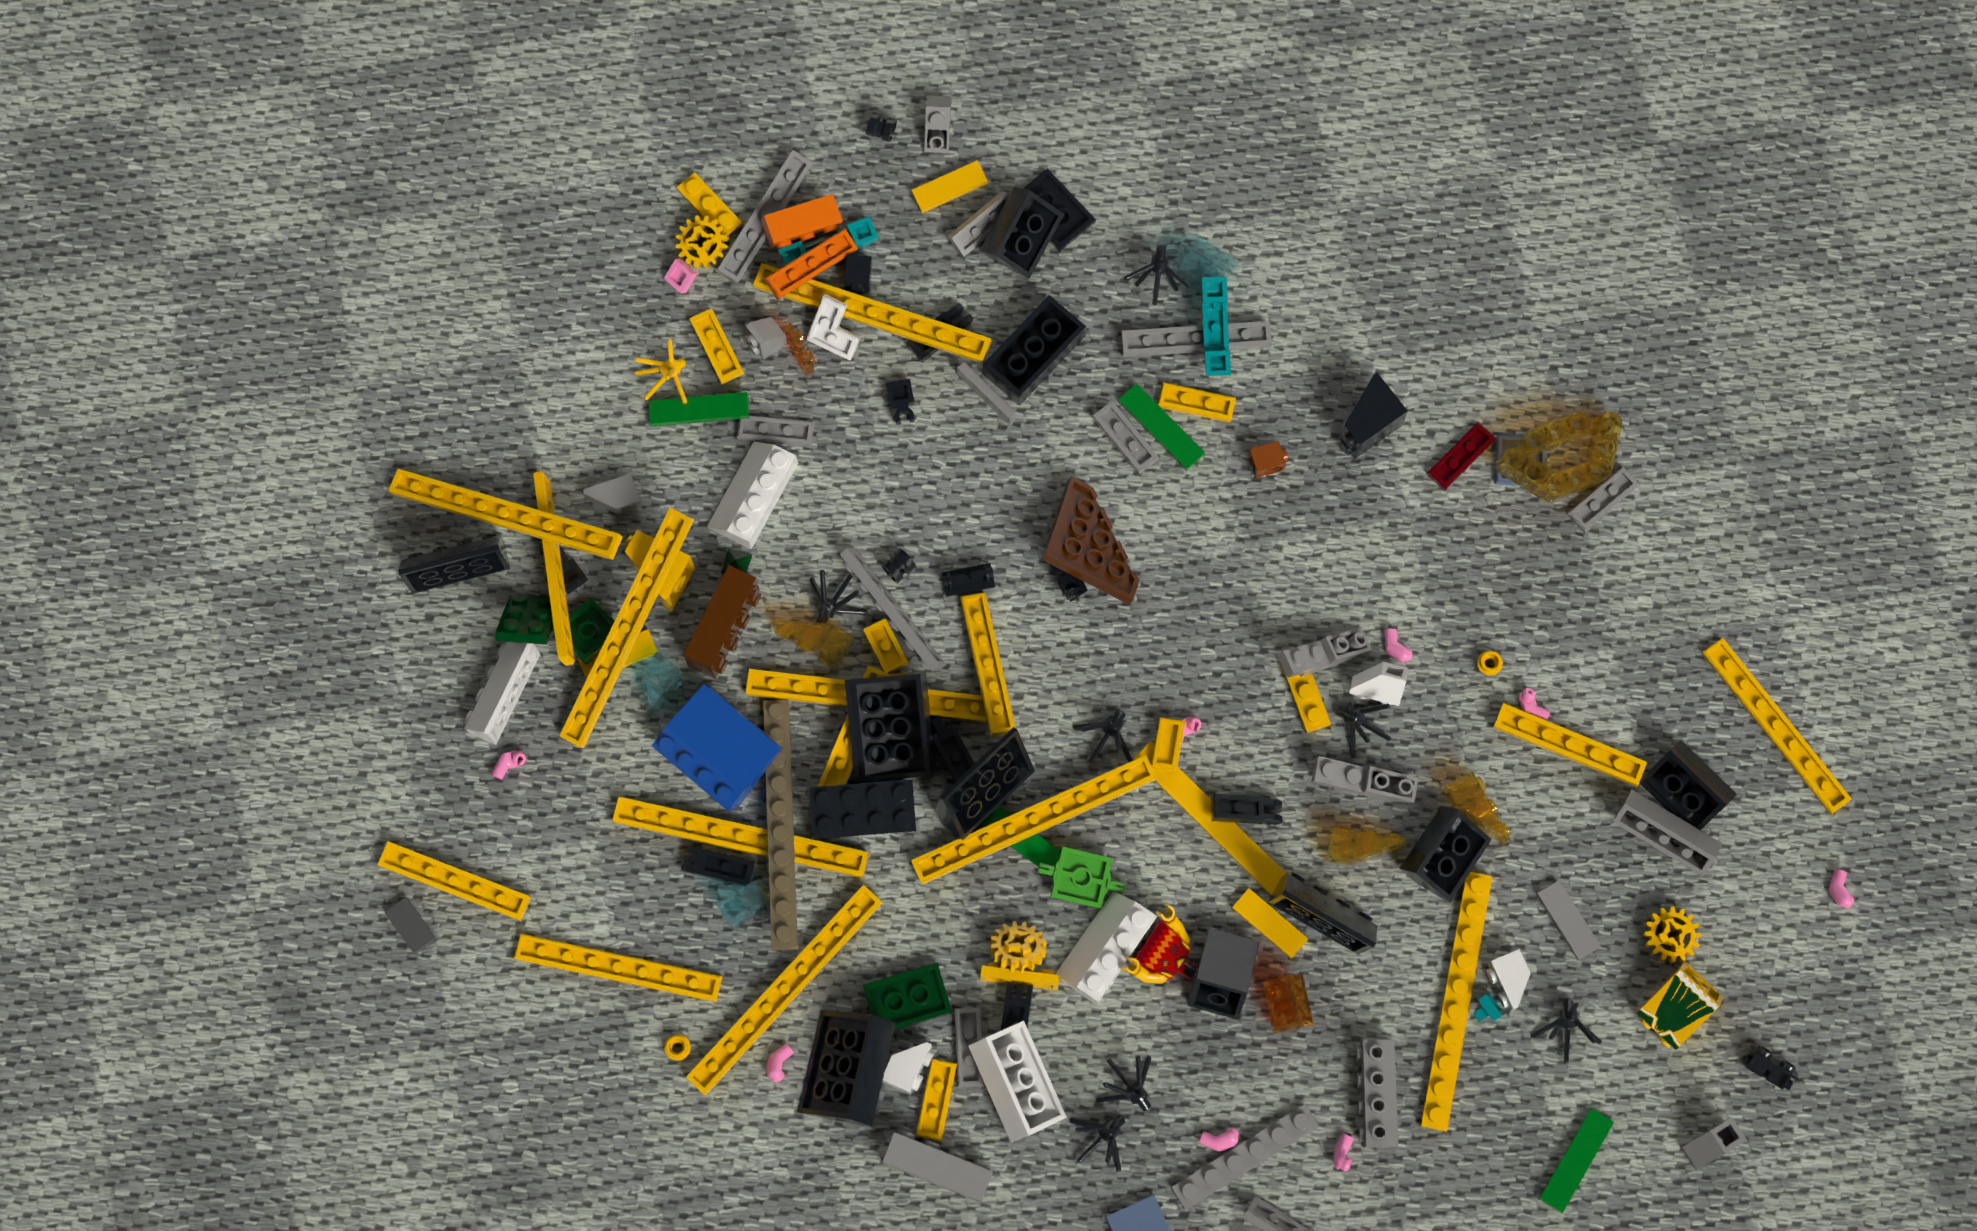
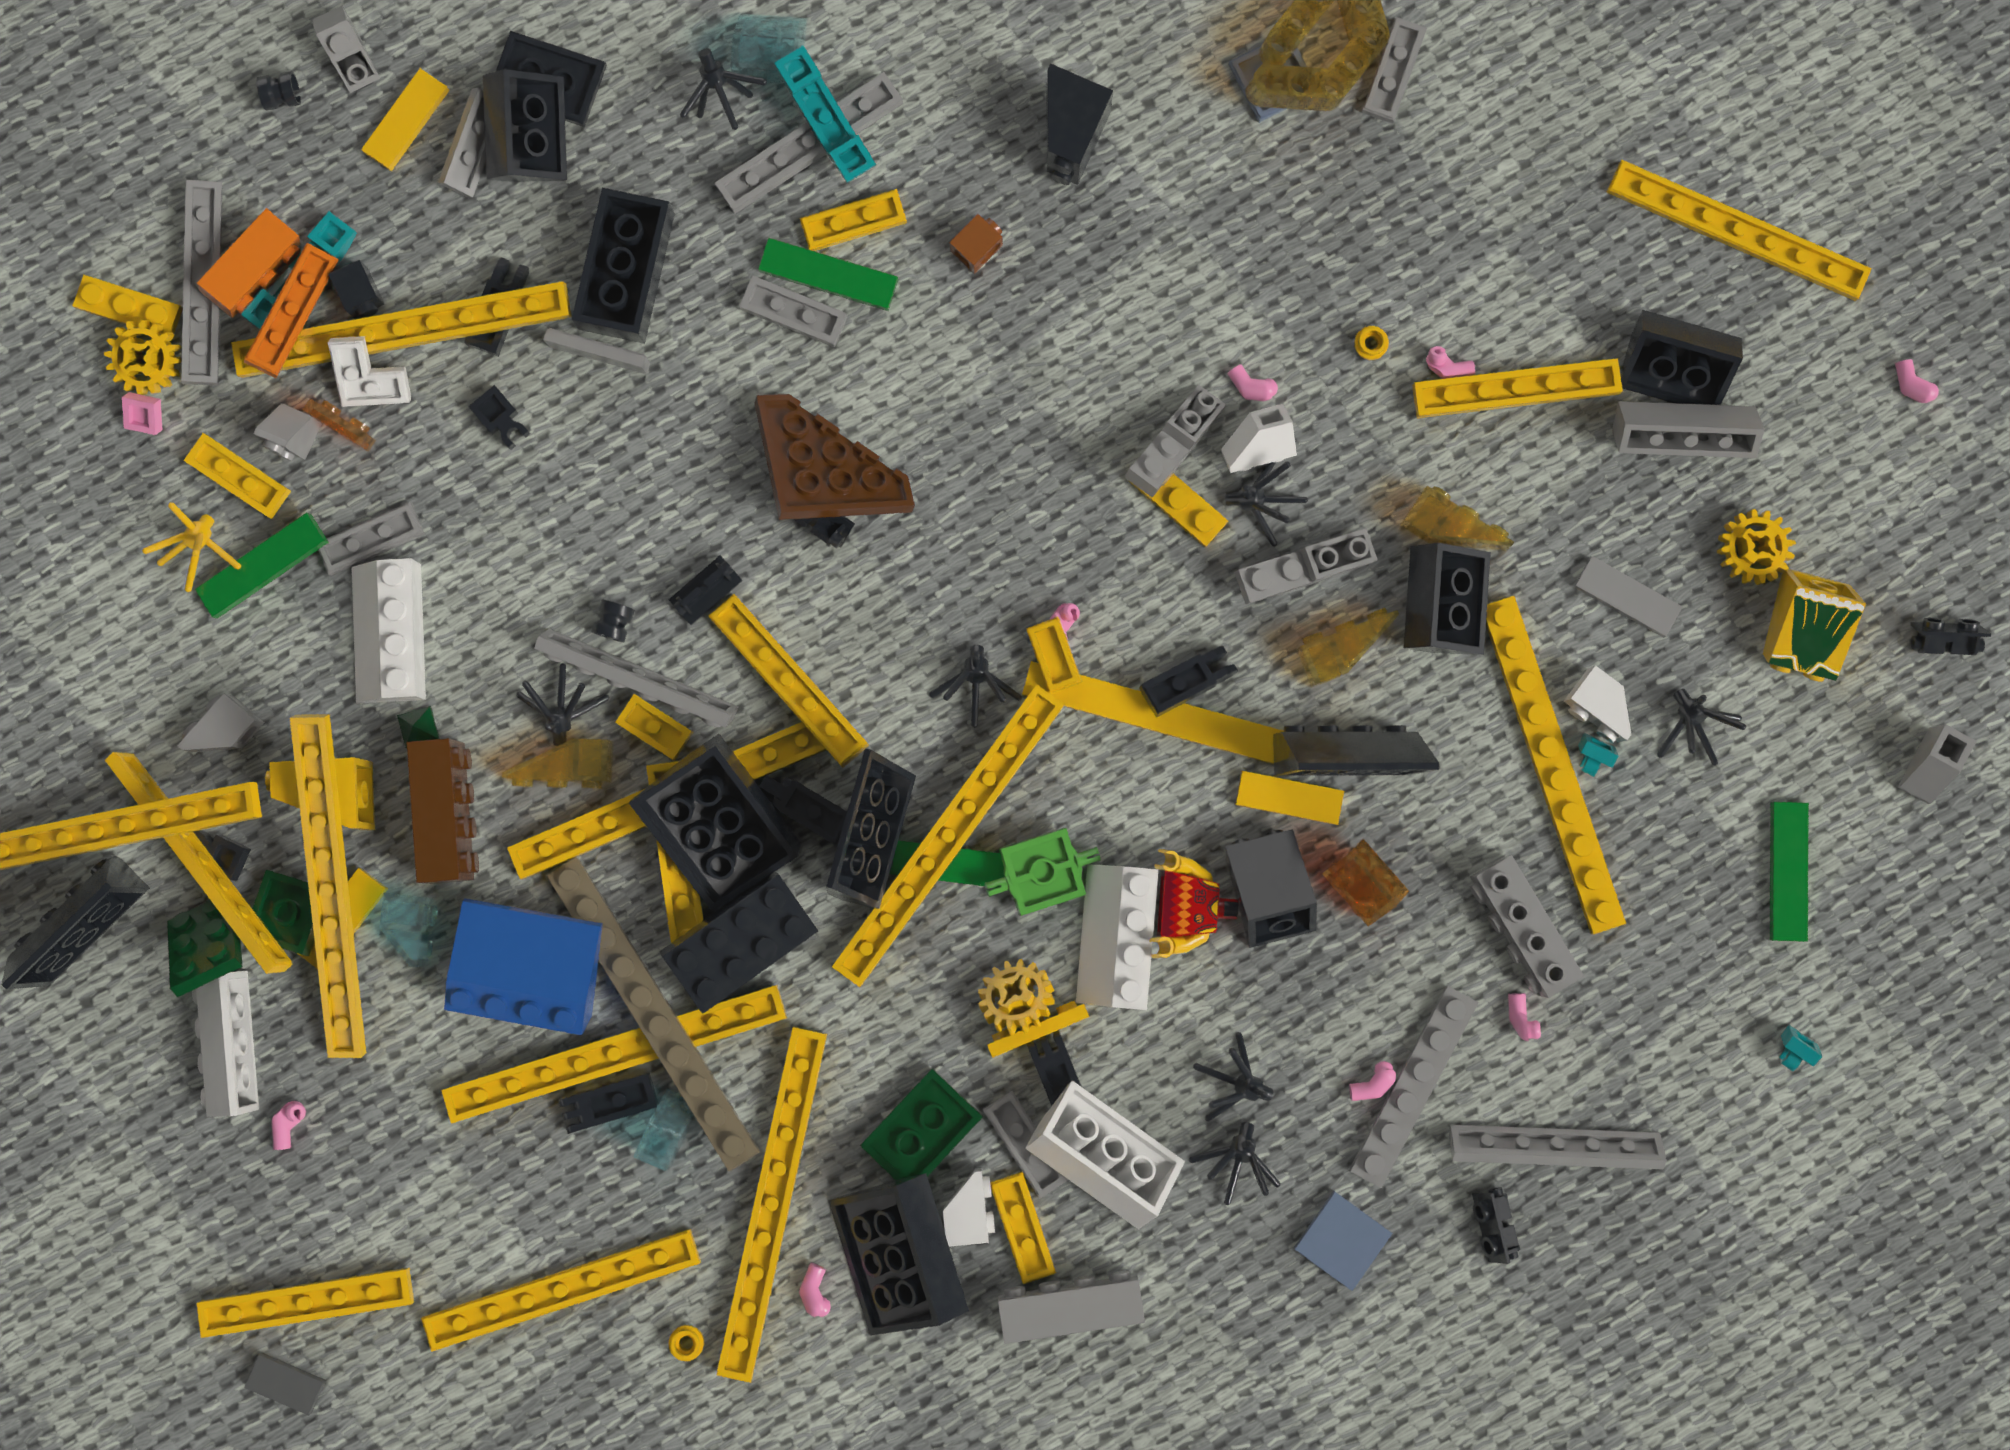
camera: 30 degrees left, 10 degrees up
(1461, 456) = (1200, 111): dark red tile -> none

